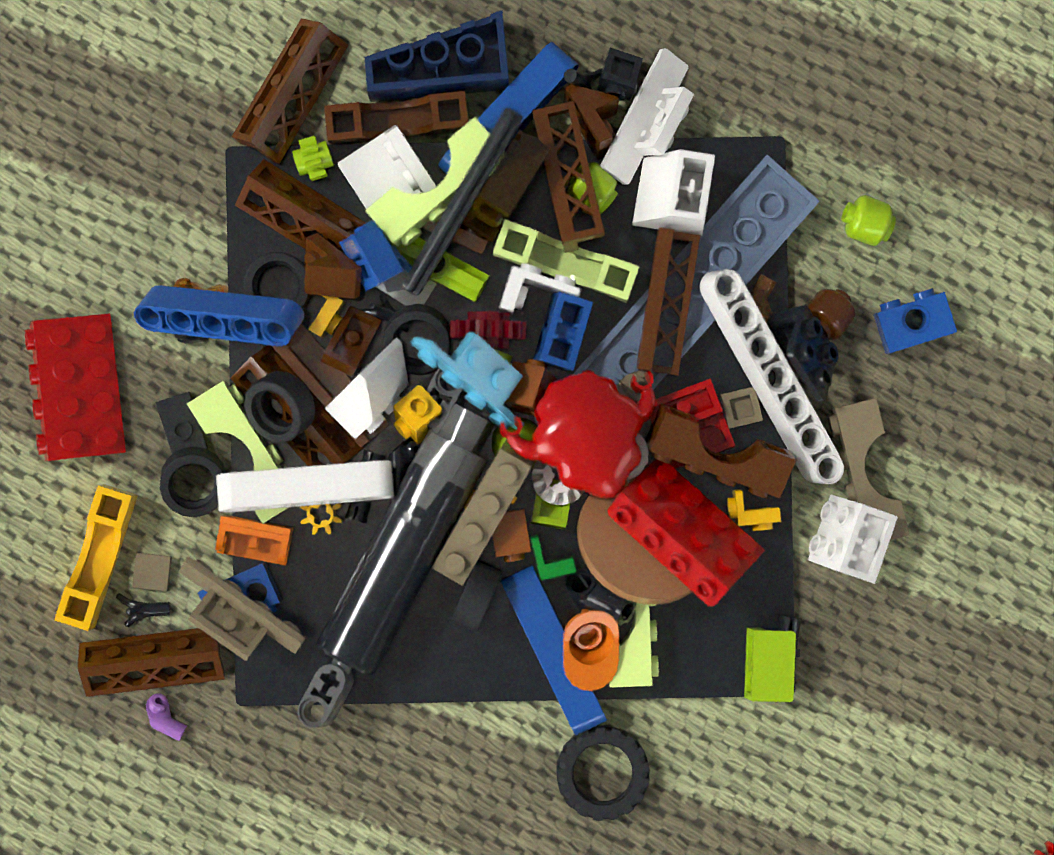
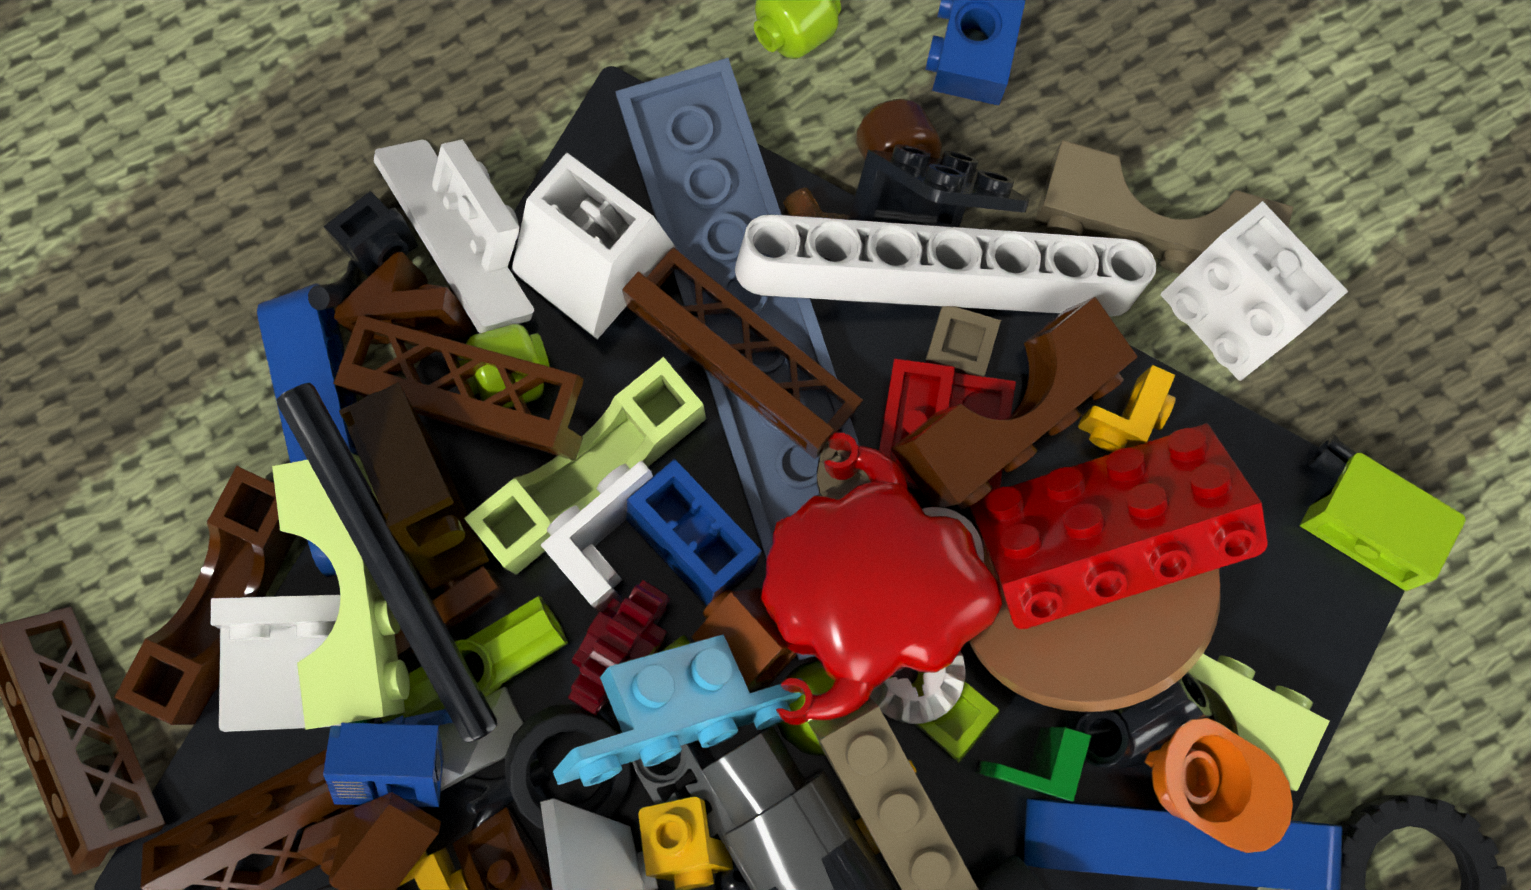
camera: 65 degrees left, 10 degrees down
(313, 158) = (188, 764): lime gear -> none
(451, 61) = (159, 528): dark blue wedge -> none
(512, 536) = (966, 804): dark orange brick -> none

